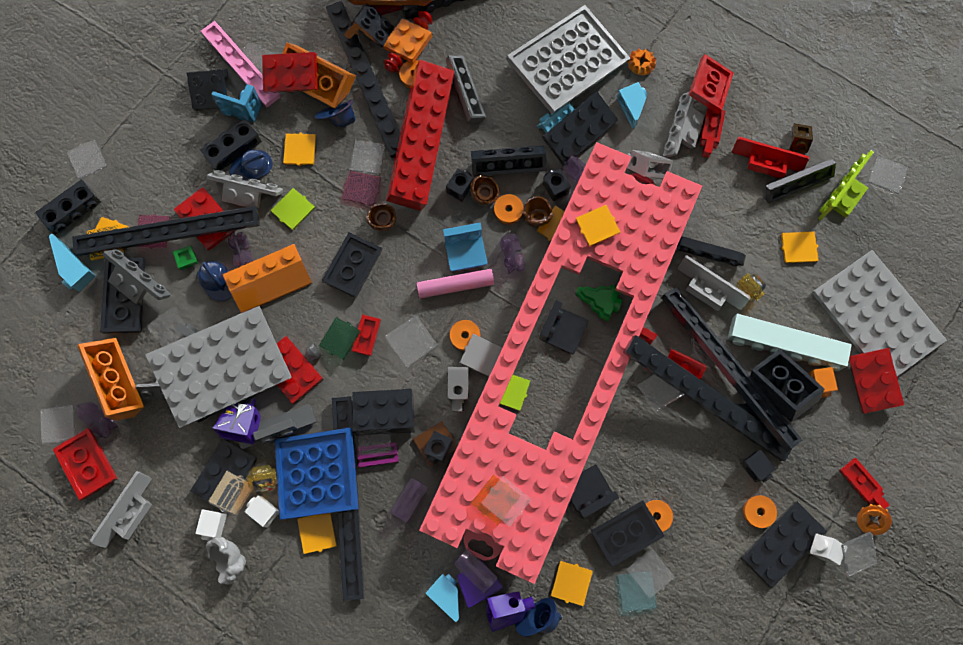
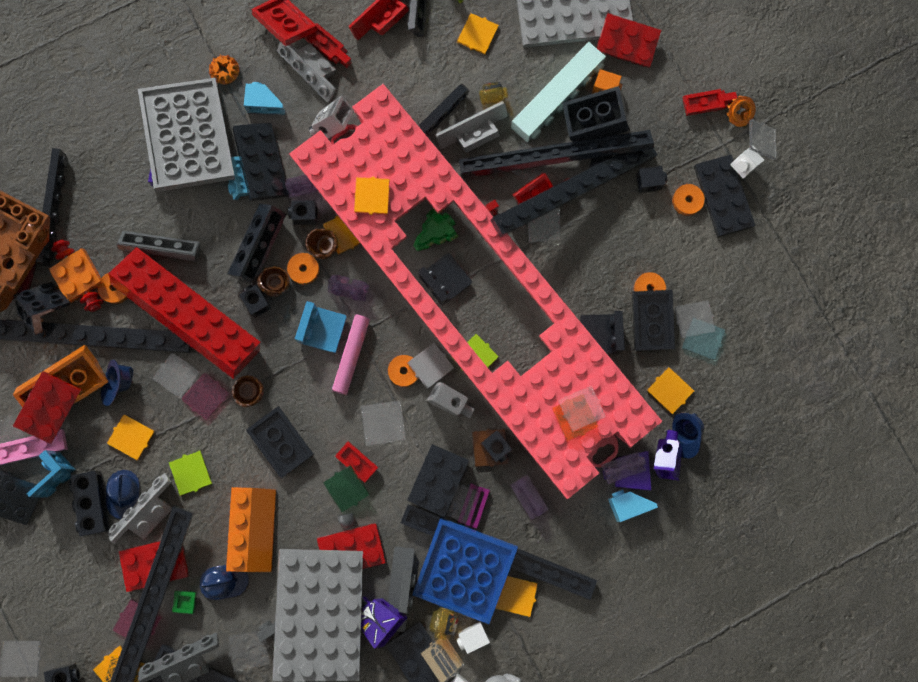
camera: 70 degrees left, 5 degrees up
(238, 243) = (197, 543): clear purple hinge -> none

